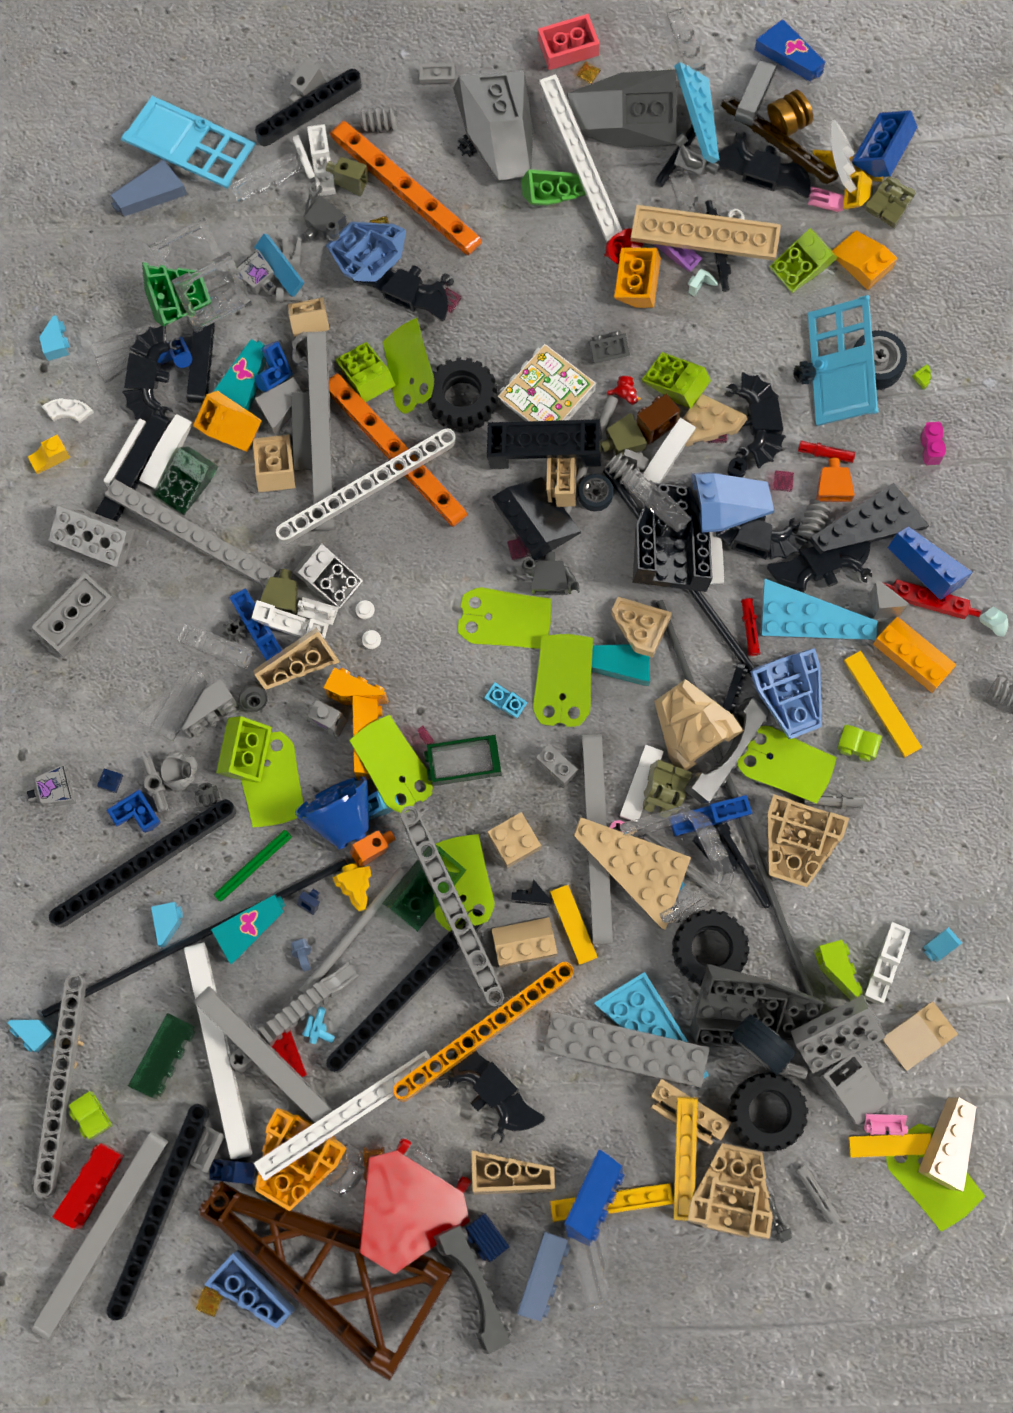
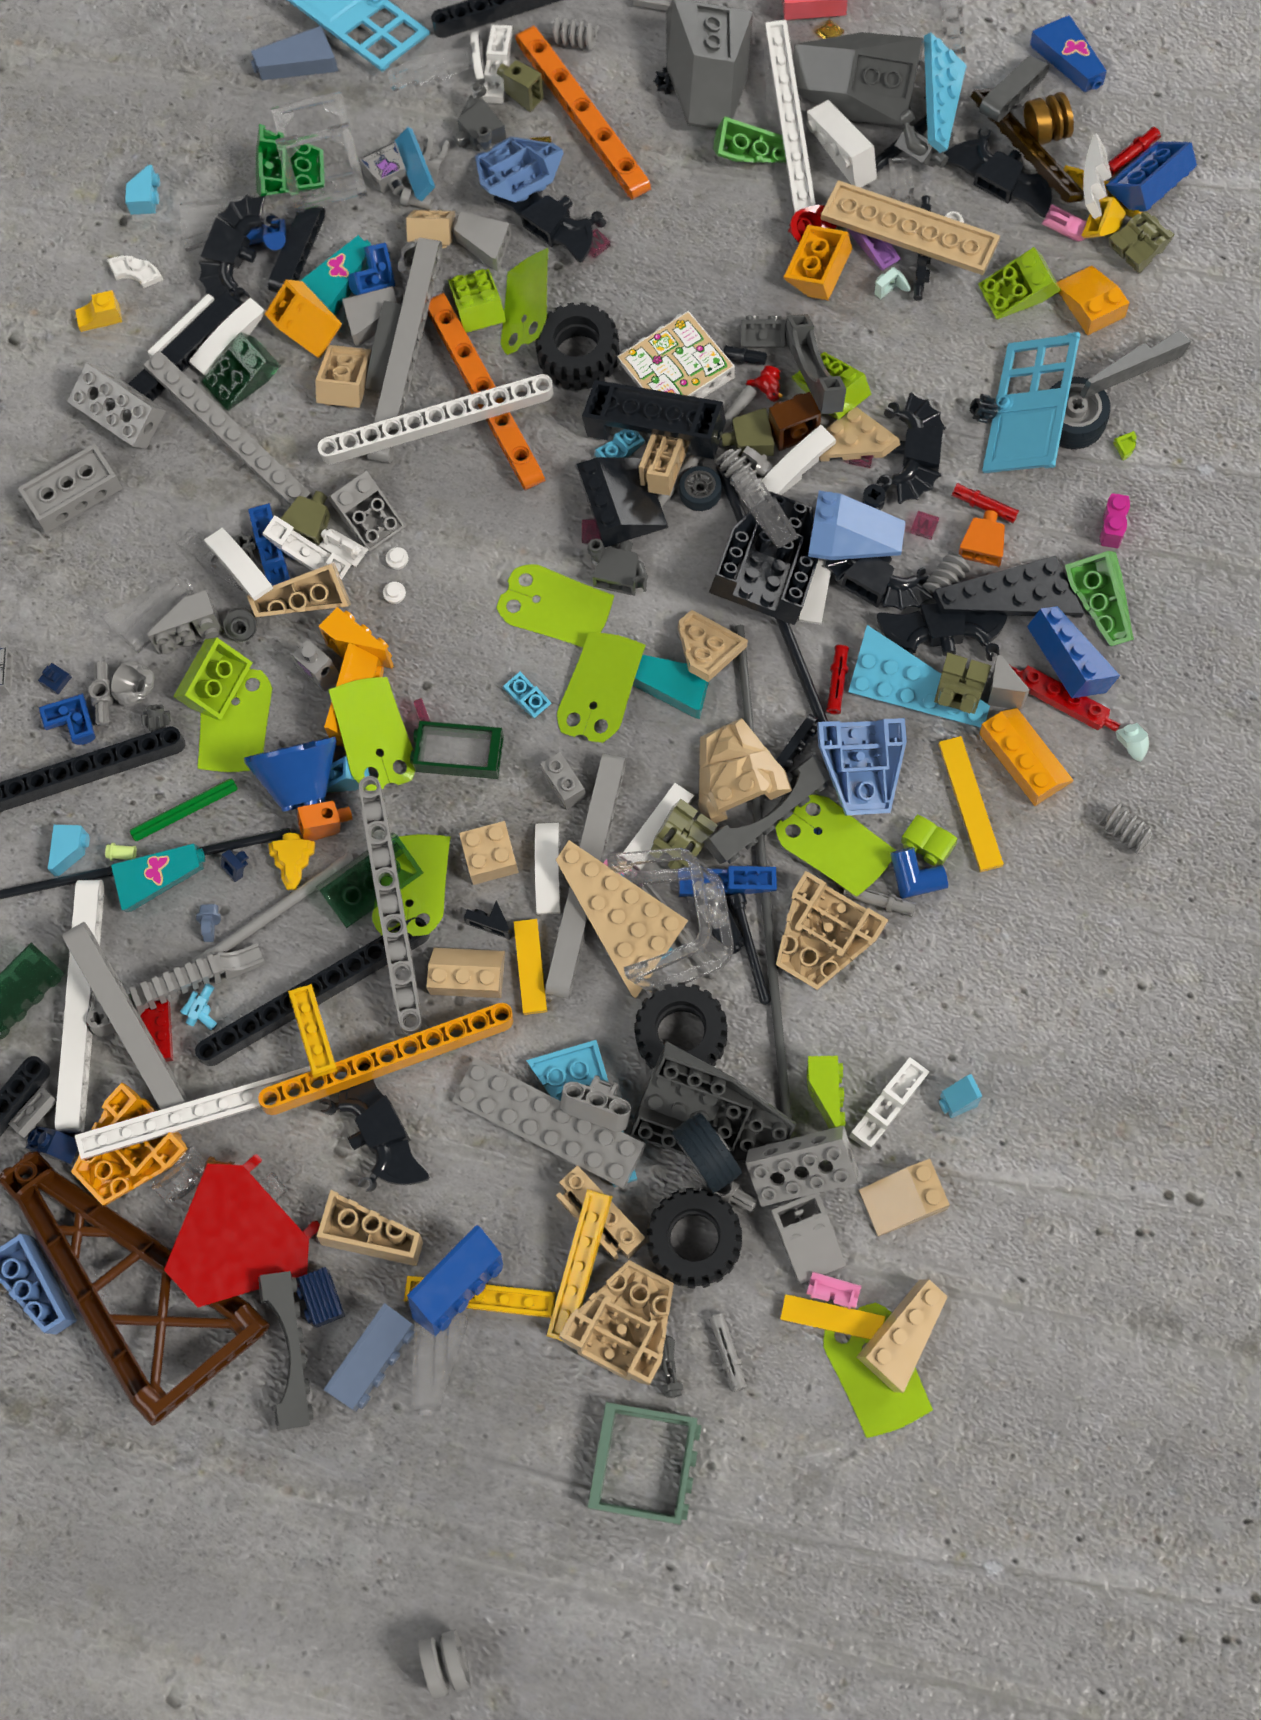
camera: 20 degrees right, 5 degrees down
(211, 914) = (120, 852): none -> yellowish green pin
(239, 649) = (238, 564): none -> white slope
(354, 316) = (482, 237): none -> light grey slope
(419, 1025) = (312, 1031): none -> yellow tile
(519, 472) = (622, 445): none -> medium azure slope
(564, 840) = (547, 869): none -> white slope
(600, 370) = (745, 355): none -> black axle
(629, 169) = (843, 143): none -> white wedge
(675, 1029) = (596, 1104): none -> light grey piece
(682, 391) = (826, 390): none -> dark grey arch
(814, 1305) = (689, 1459): none -> sand green window
(852, 609) = (961, 686): none -> olive hips
(857, 778) = (912, 880): none -> blue brick
(867, 119) = (1139, 146): none -> red pin
(918, 306) = (1137, 362): none -> dark grey slope
(938, 505) = (1102, 592): none -> bright green wedge

